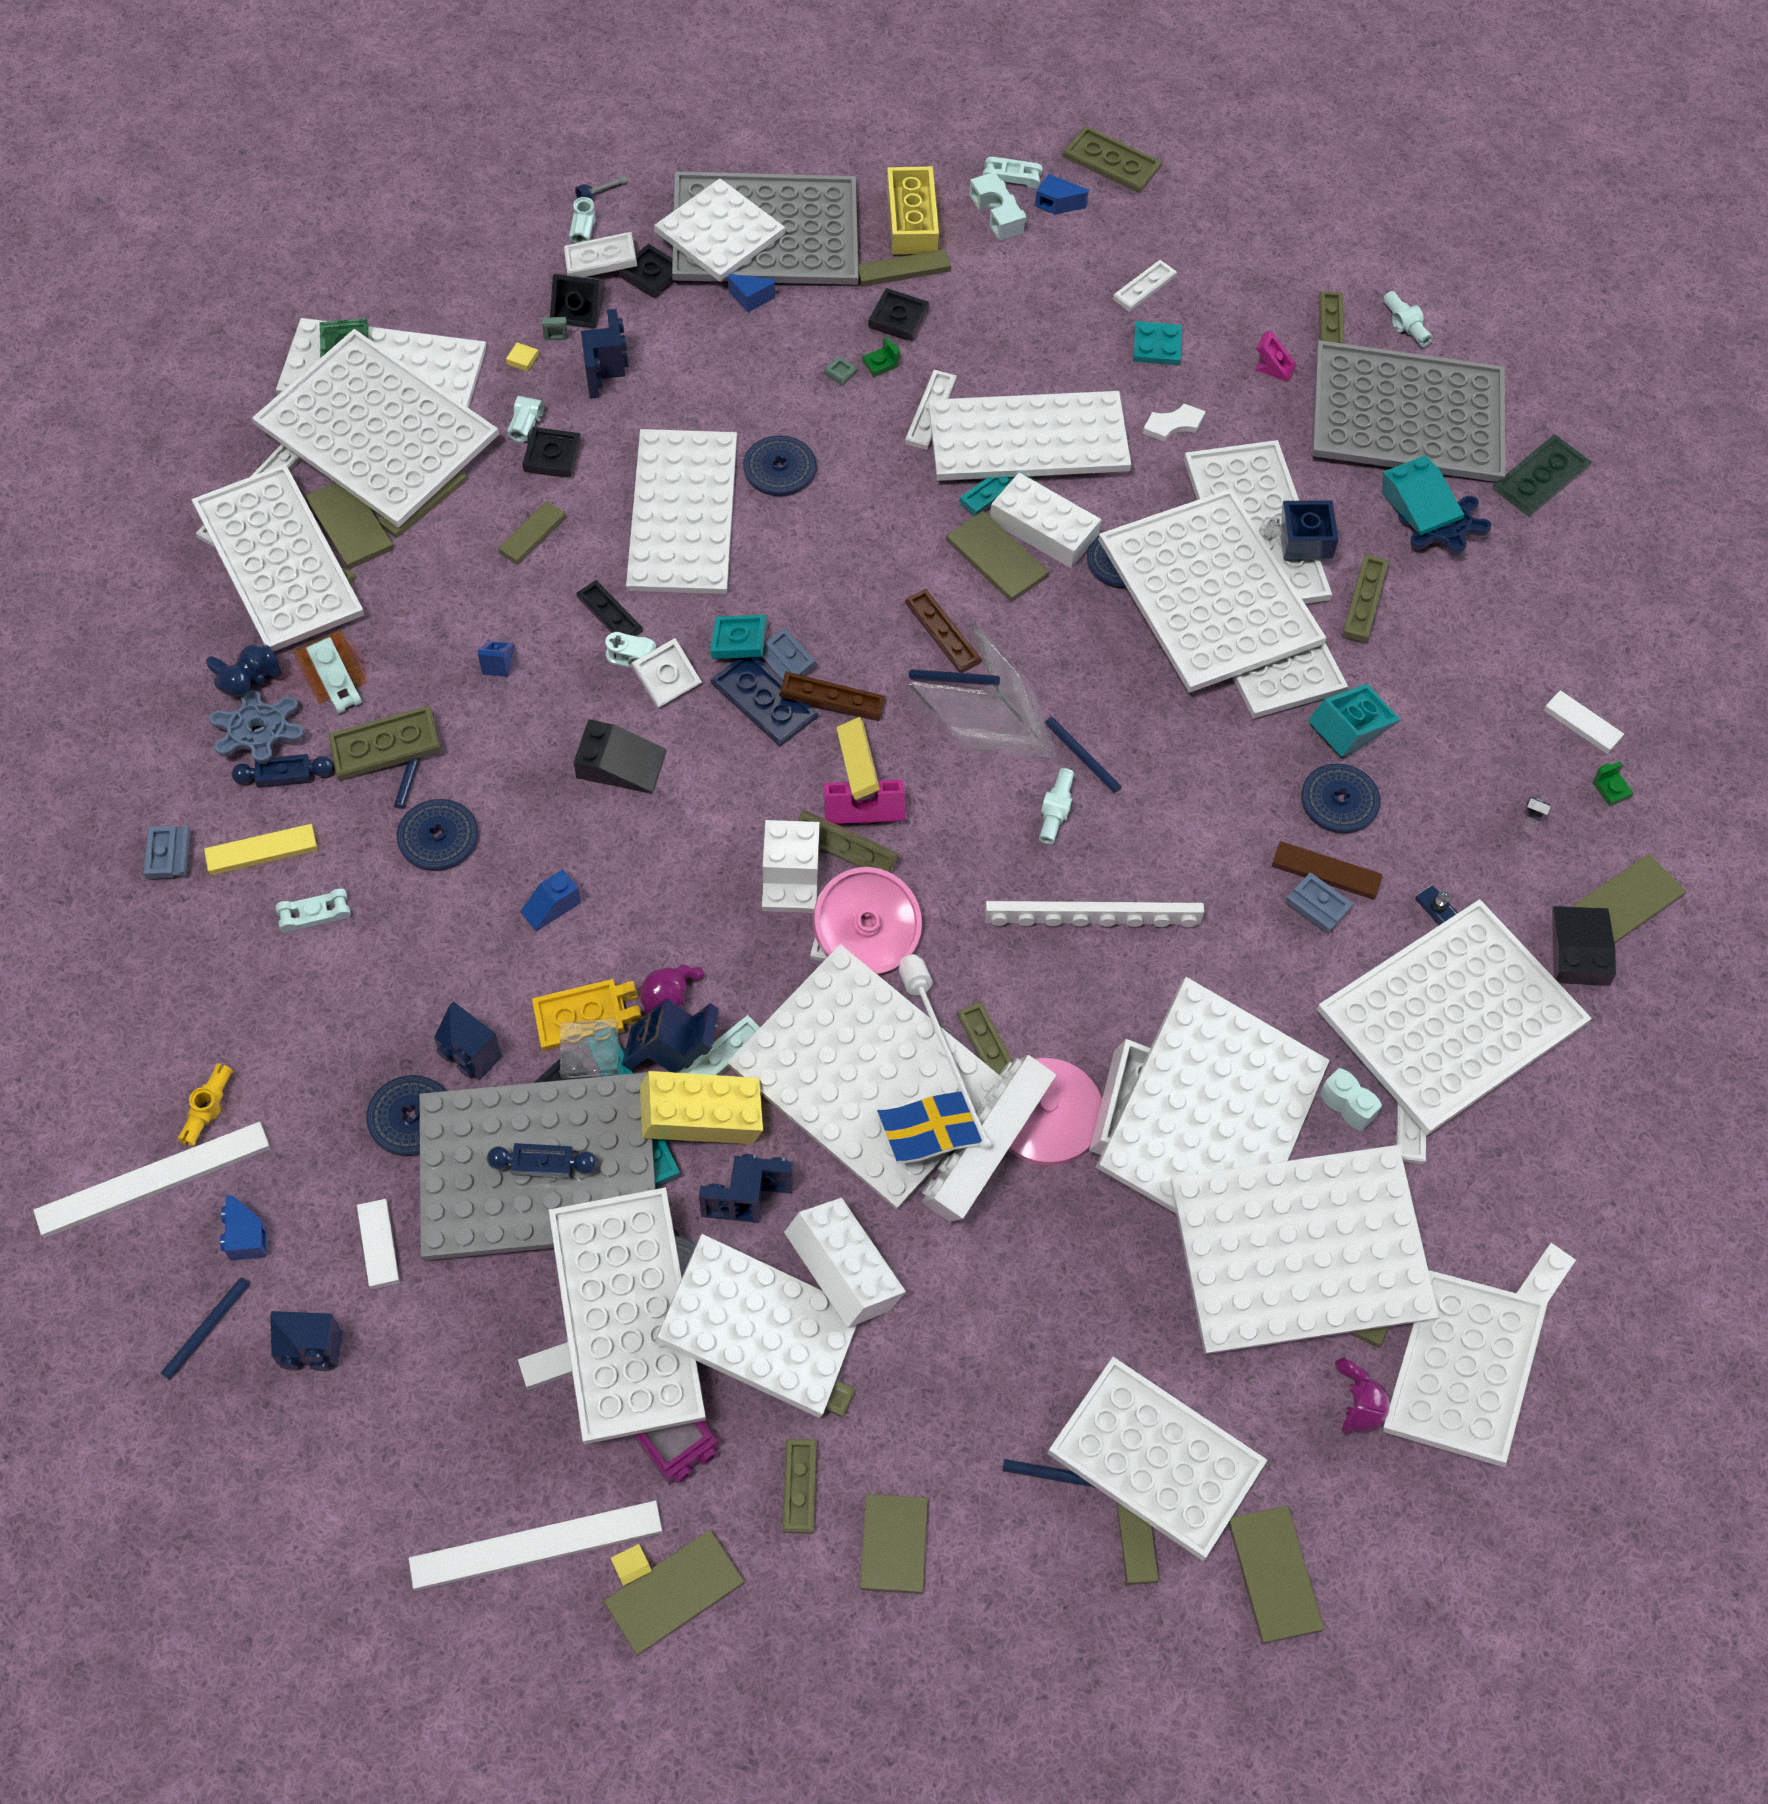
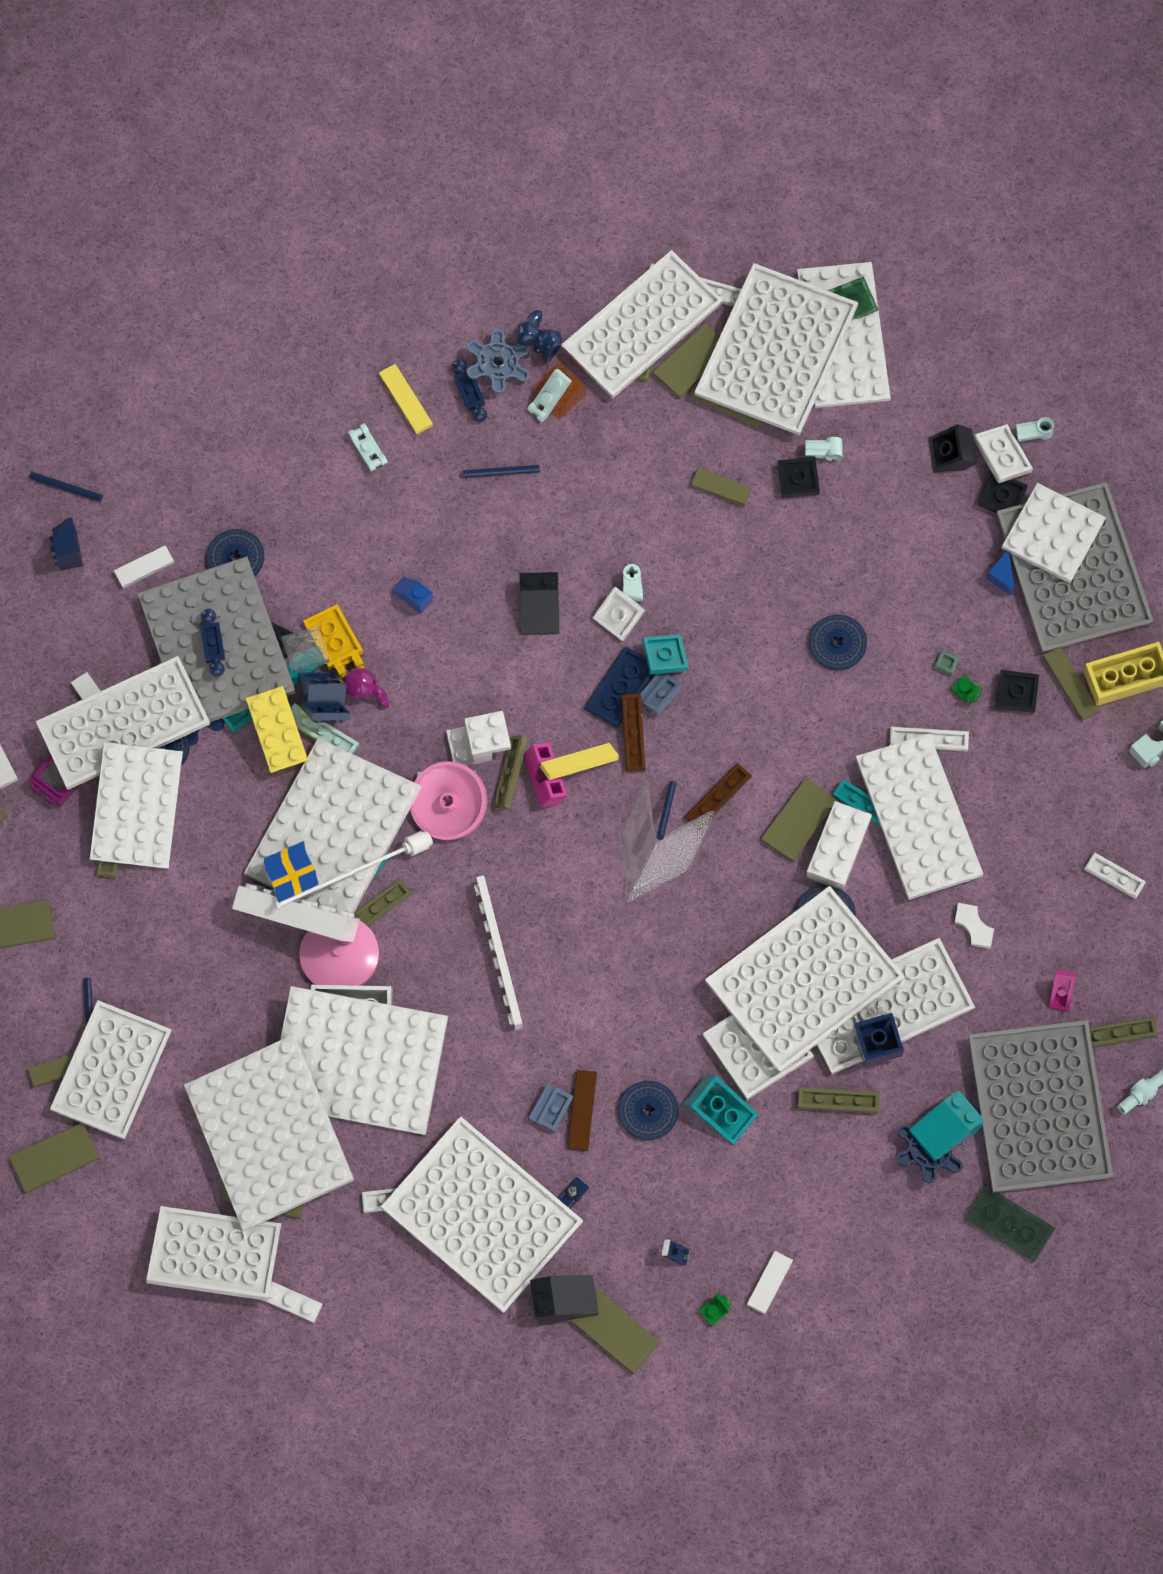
camera: 80 degrees right, 10 degrees up
(151, 1180) = (155, 421): white tile -> none
(167, 852) = (386, 342): sand blue plate -> none
(211, 1093) = (219, 432): yellow pin -> none
(244, 1232) = (132, 484): blue slope -> none
(384, 742) = (509, 447): olive tile -> none
(450, 848) = (461, 509): dark blue piece -> none
(467, 1042) = (289, 573): dark blue slope -> none
(495, 658) = (603, 496): blue slope -> none
(522, 356) = (886, 428): light yellow tile -> none
(555, 328) = (917, 443): sand green tile -> none
(587, 191) = (1069, 423): hinge -> none
(604, 353) = (896, 484): dark blue bracket -> none
(608, 610) = (666, 561): black tile -> none
(682, 512) = (774, 585): white plate -> none
(748, 1181) = (229, 774): dark blue bracket -> none
(799, 1486) = (46, 860): olive tile -> none
(844, 1262) = (192, 846): white brick -> none
(1056, 806) = (582, 909): light aqua pin -> none
(1083, 755) = (635, 920): dark blue bar -> none
(1157, 343) = (1054, 897): teal plate -> none
(1354, 1102) = (391, 1156): light aqua brick -> none
(1369, 1399) = (174, 1193): magenta piece -> none

